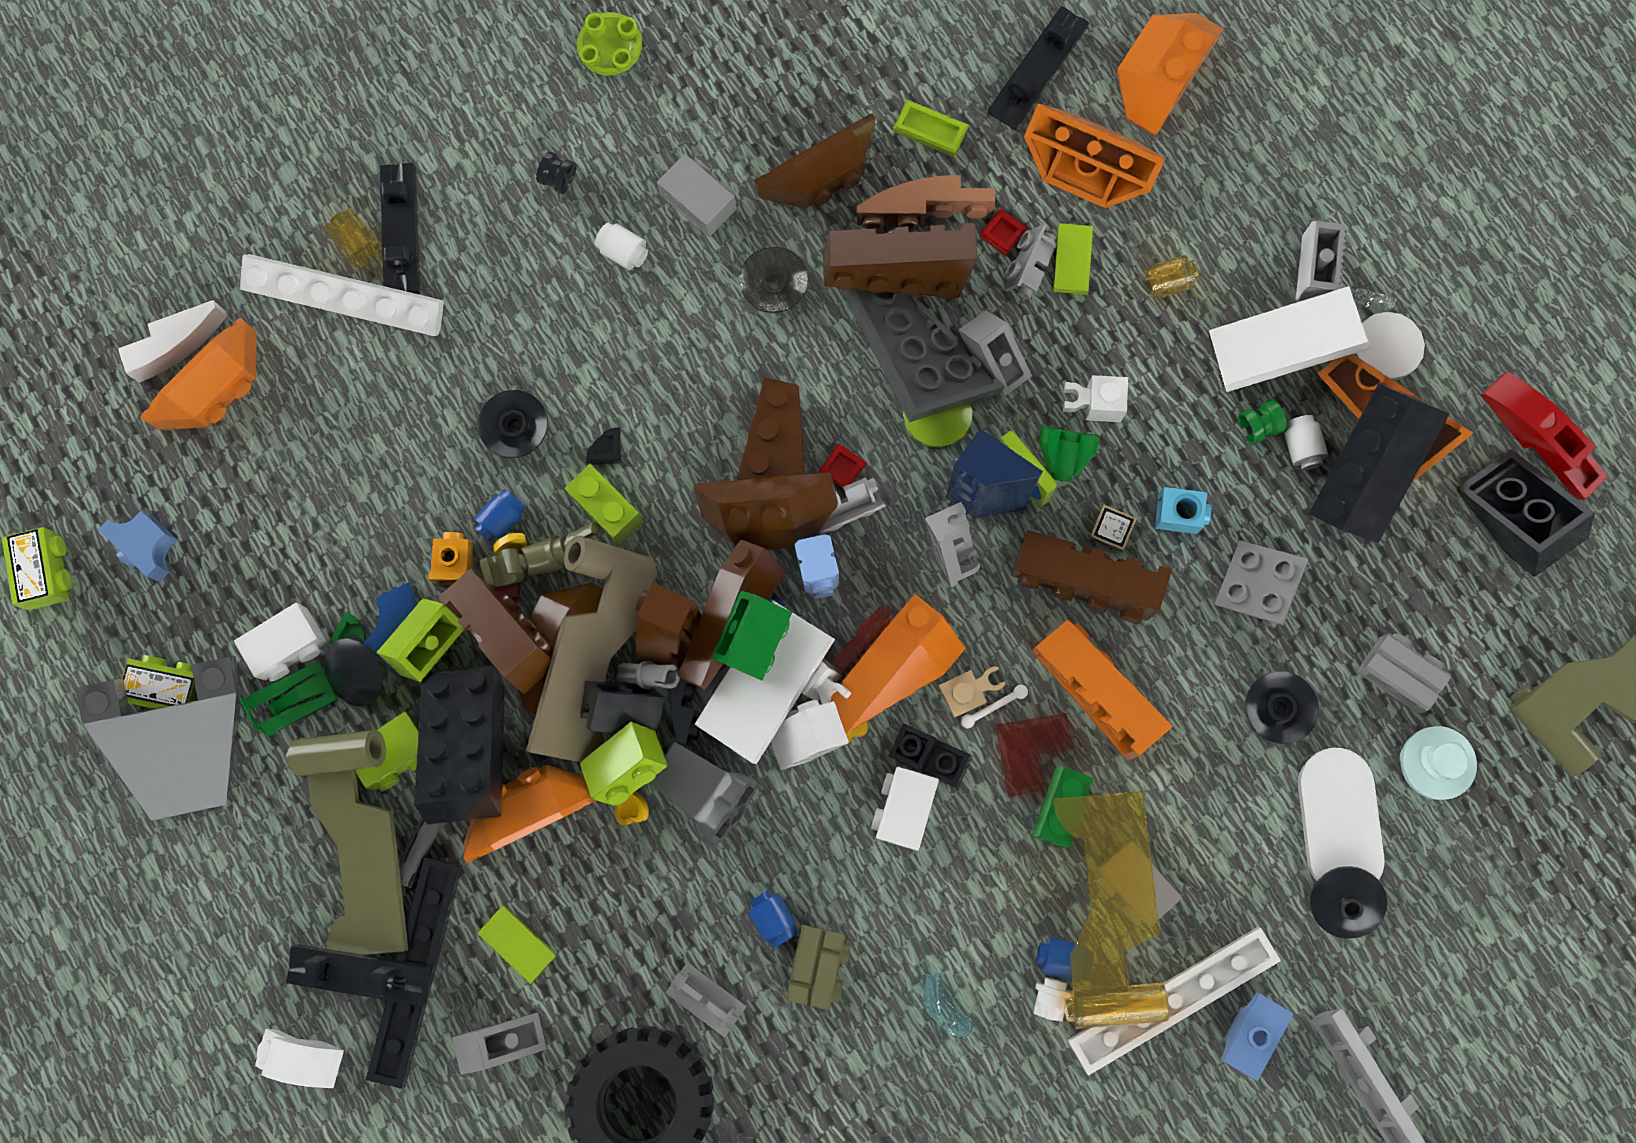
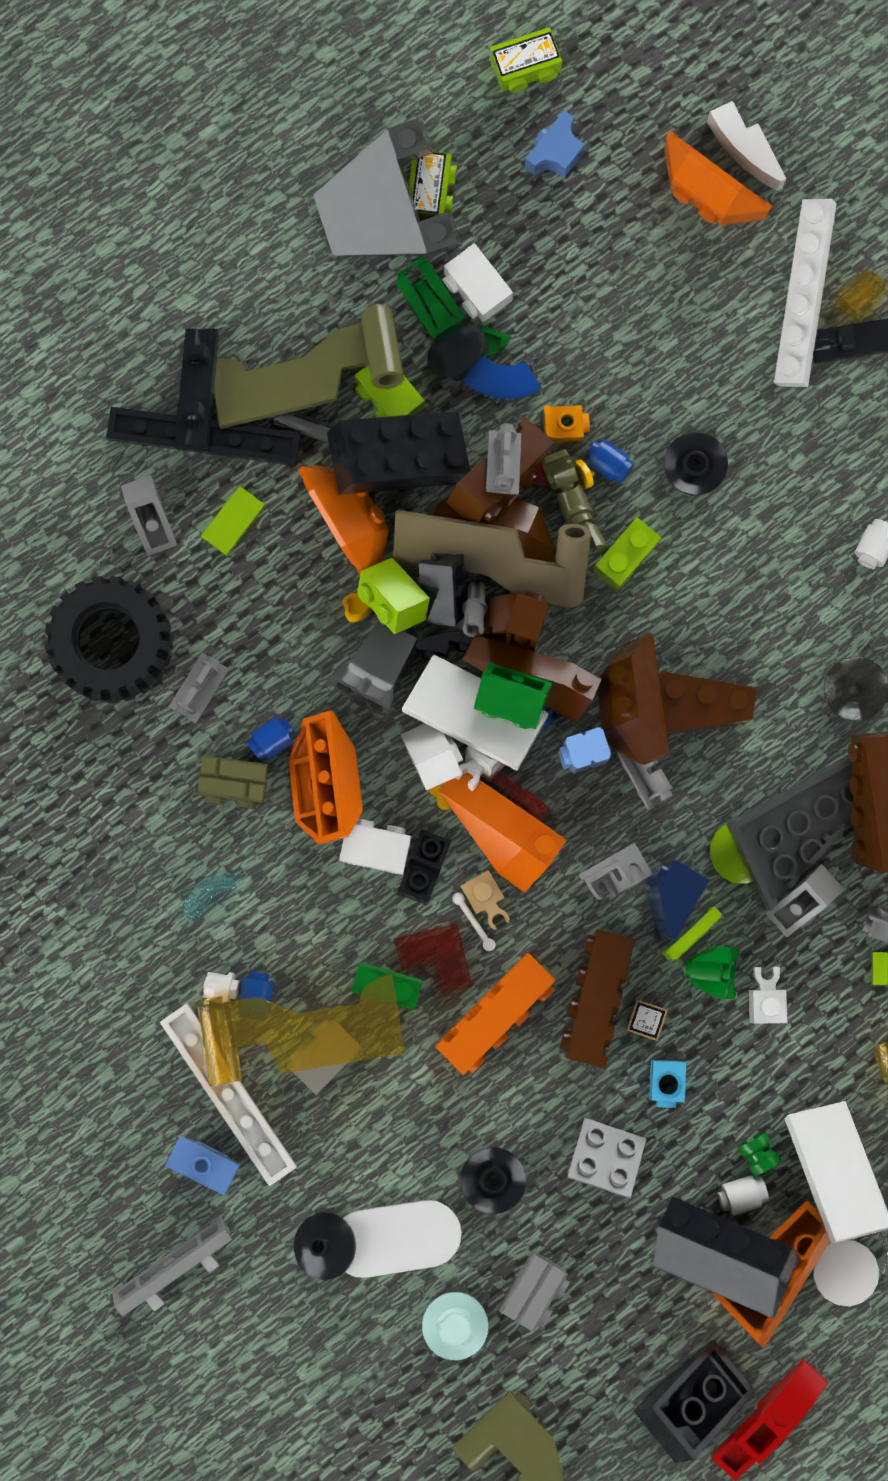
camera: 80 degrees right, 5 degrees up
(298, 1060) = (122, 348): white brick -> none
(421, 639) = (487, 404): lime brick -> none
(484, 622) = (503, 460): none -> light grey hinge
(606, 448) = (681, 550): black tile -> none
(825, 860) = (325, 779): none -> orange wedge
(843, 465) = (683, 767): red tile -> none

